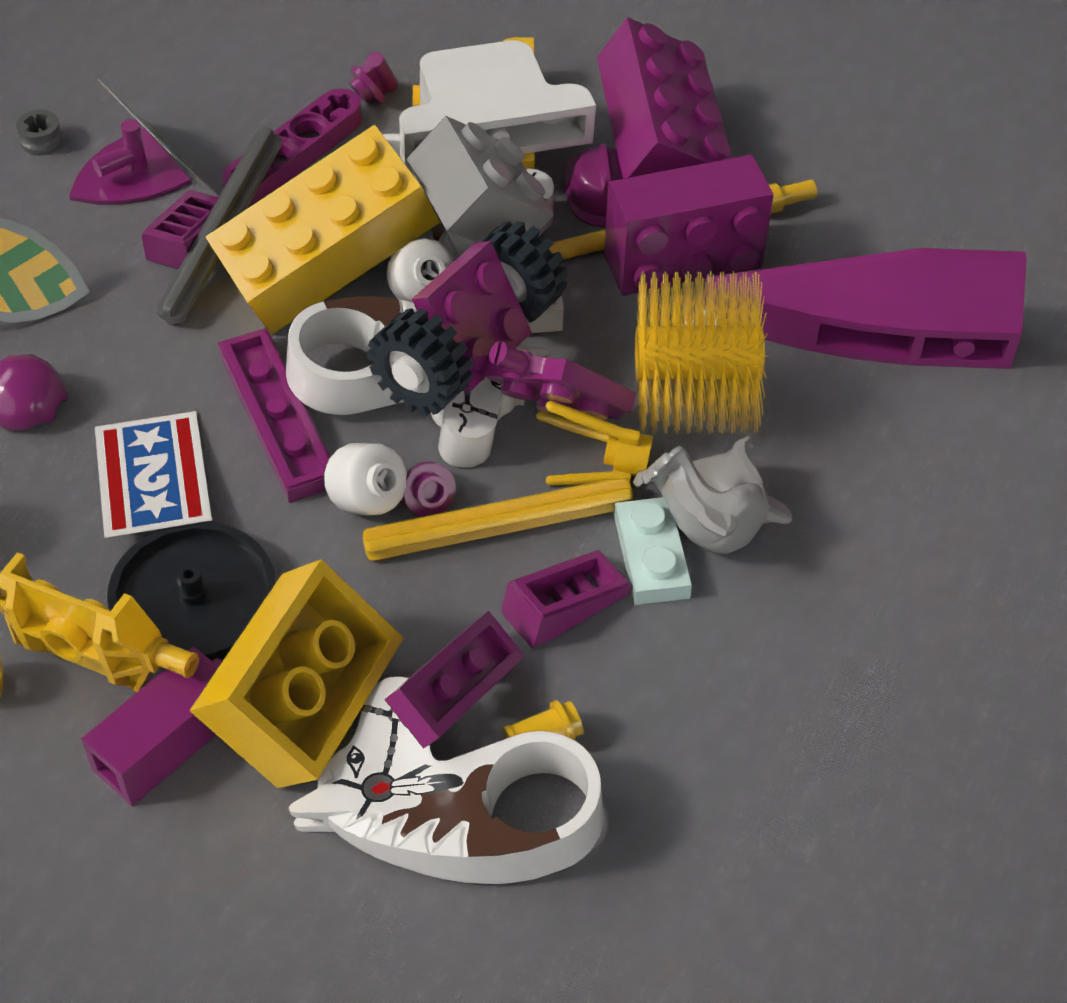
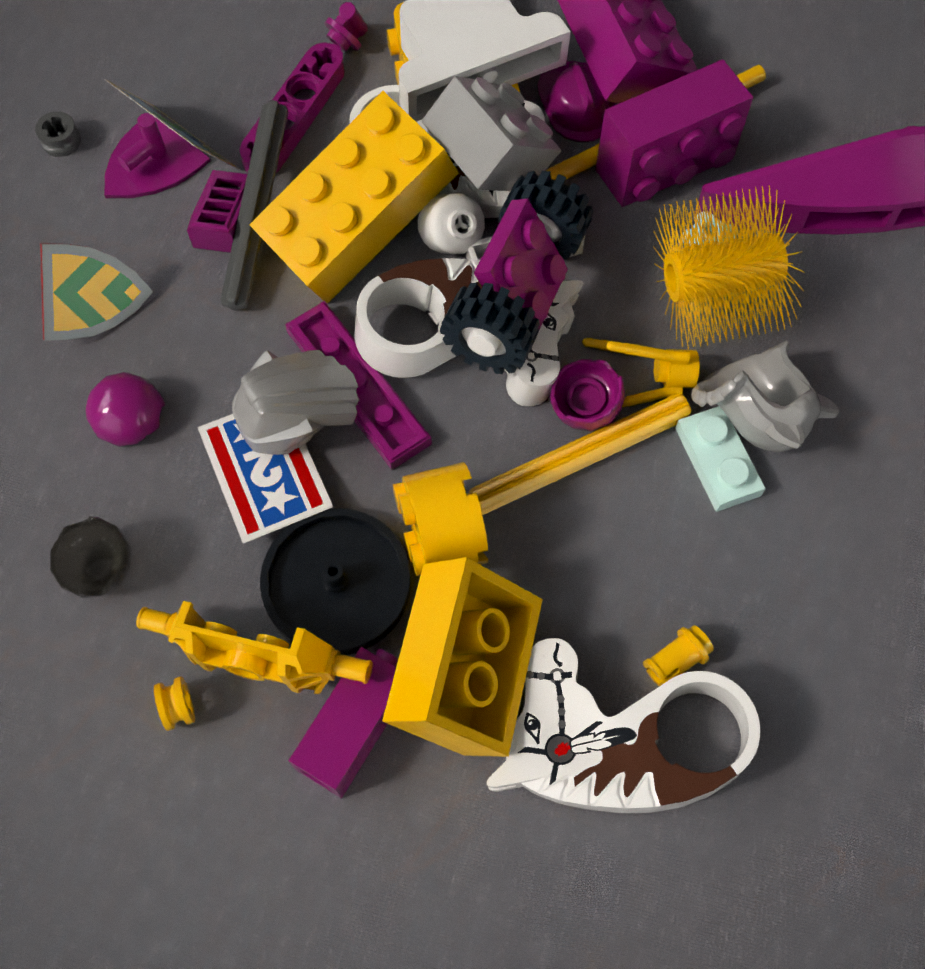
camera: 10 degrees left, 15 degrees up
(197, 407) = (292, 399): none -> light grey hair
(317, 528) = (442, 516): none -> yellow brick
(365, 478) = (460, 437): white head -> none
(429, 489) = (511, 438): plate -> none
(454, 679) = (599, 634): magenta plate -> none
(520, 459) = (587, 394): none -> magenta hair
(539, 619) = (637, 540): magenta slope -> none
(557, 381) = (598, 324): magenta plate -> none

